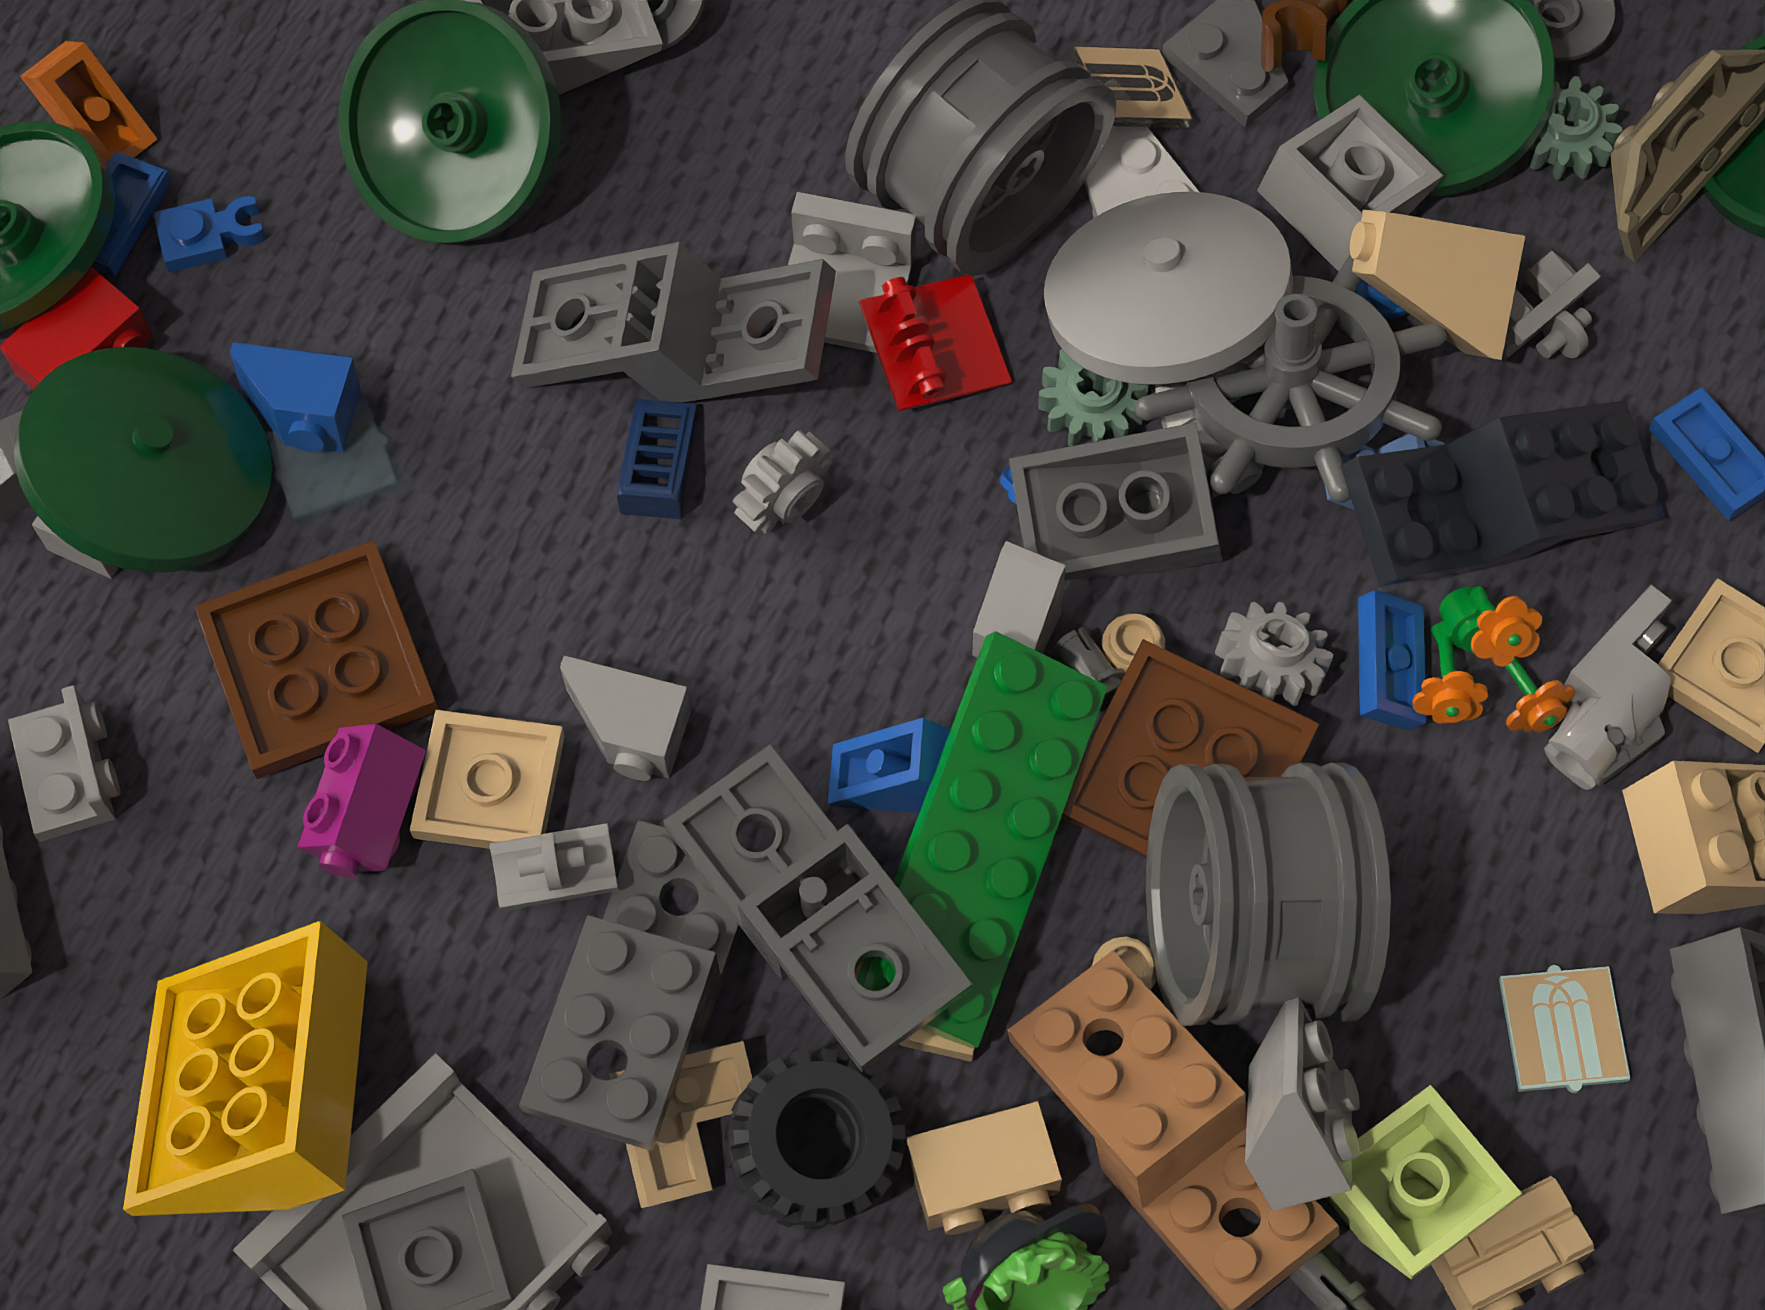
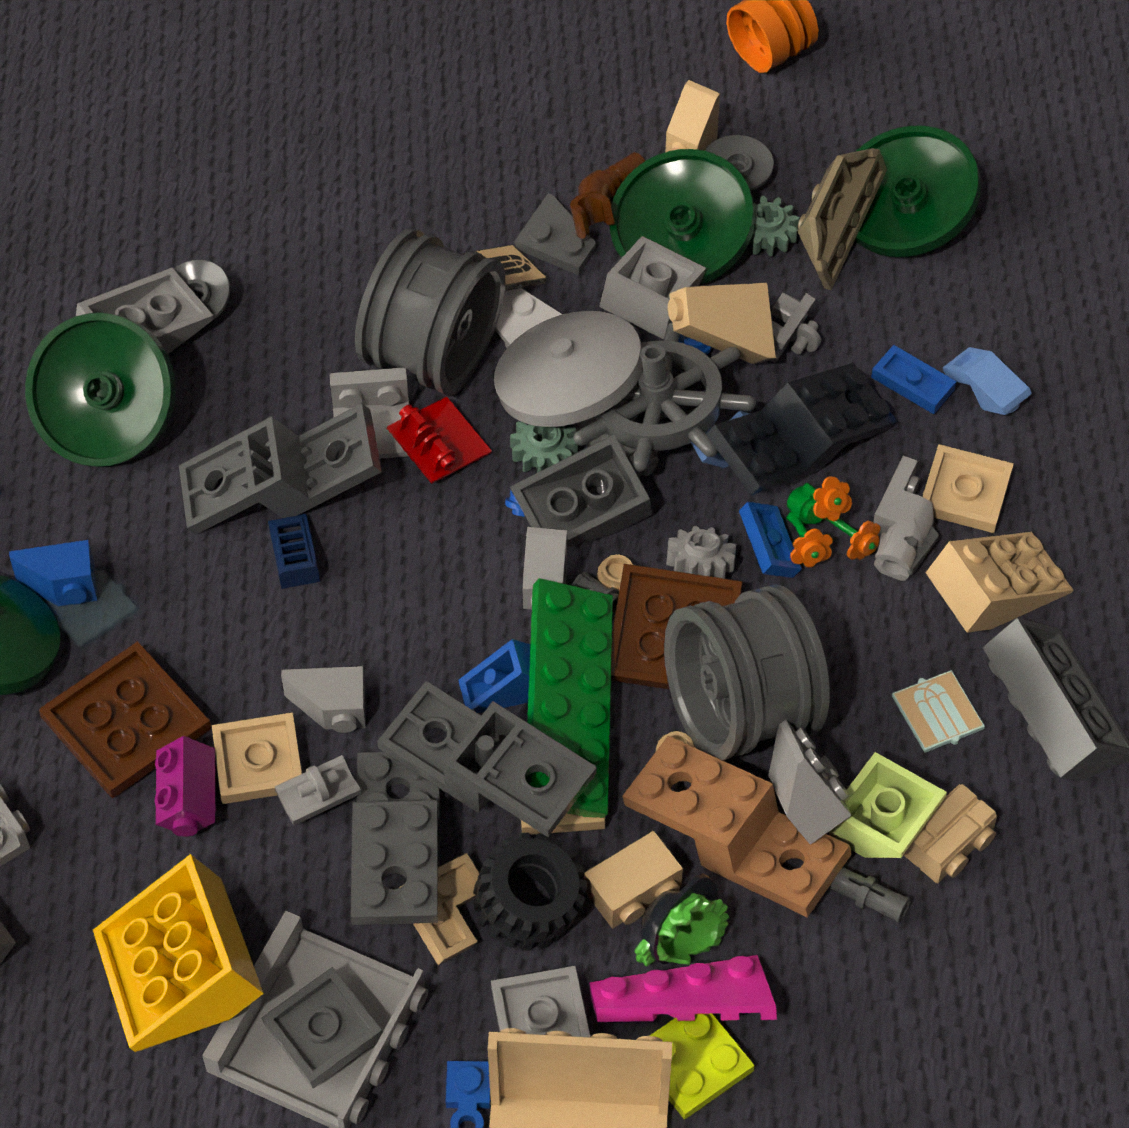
camera: 20 degrees left, 10 degrees down
(782, 481) = (377, 538): light grey gear -> none

